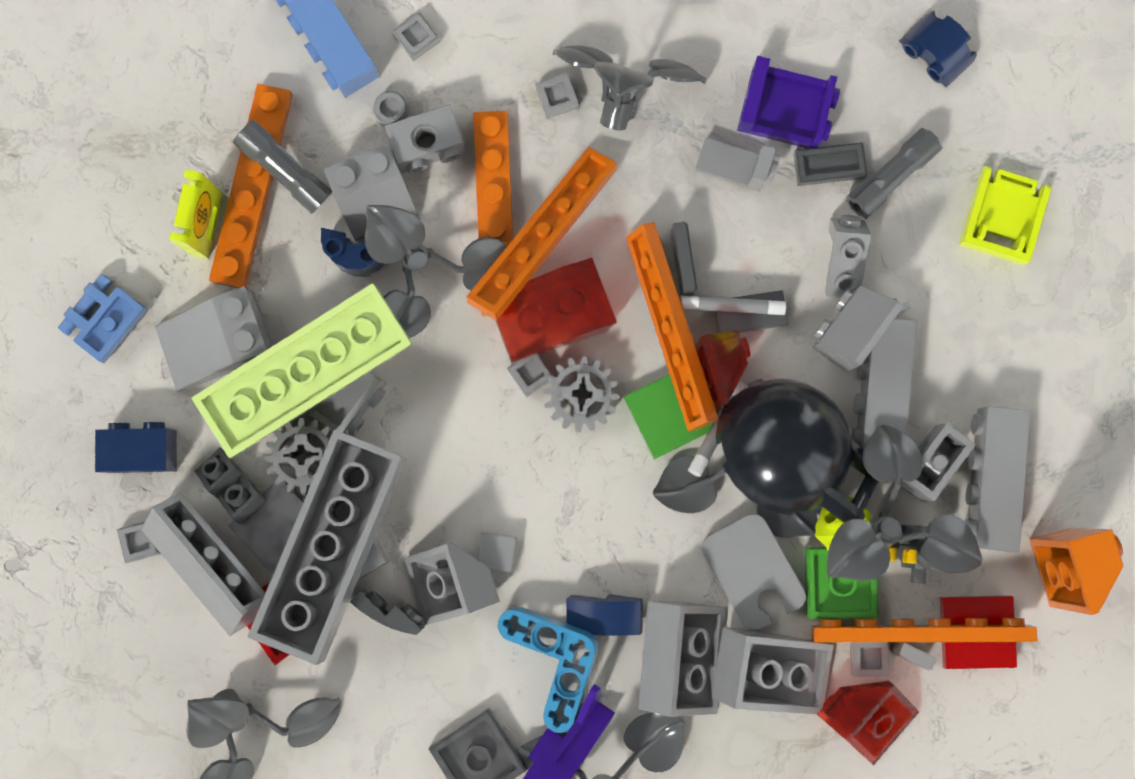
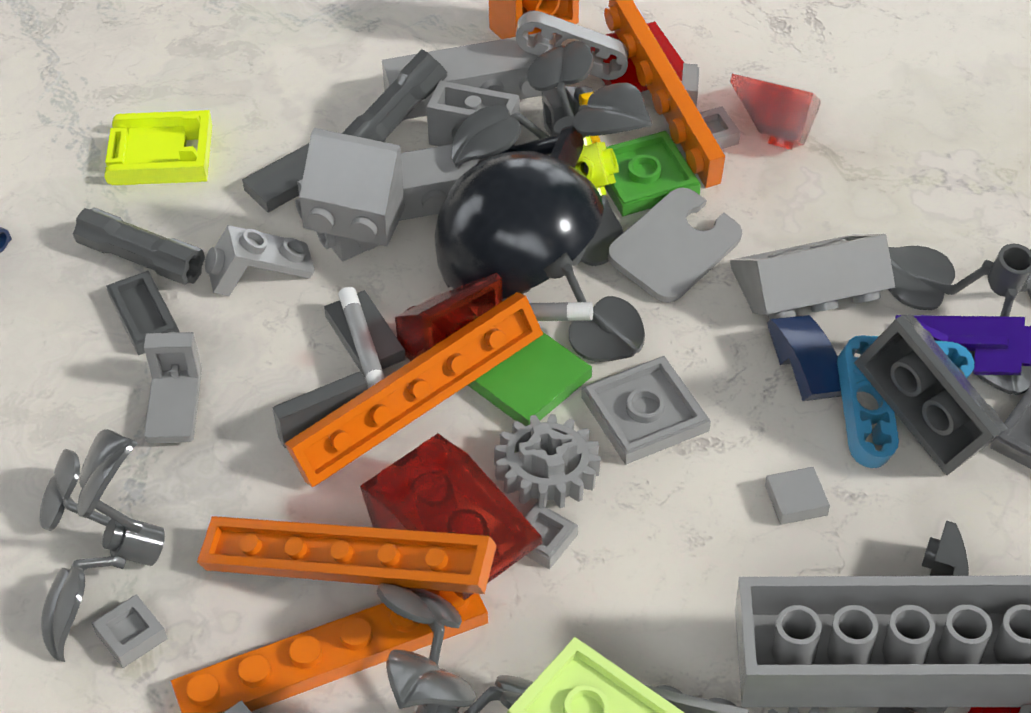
camera: 110 degrees left, 35 degrees down
(450, 583) = (872, 518): light grey slope -> none
(521, 678) = (929, 393): none -> dark grey slope
(608, 483) = (645, 409): none -> light grey tile
(771, 672) = (781, 198): light grey slope -> none
(787, 105) = (75, 367): dark purple panel -> none
(935, 305) = (278, 181): none -> dark grey tile
(977, 419) = (412, 86): none -> dark grey axle
(980, 582) = (565, 30): none -> light grey beam

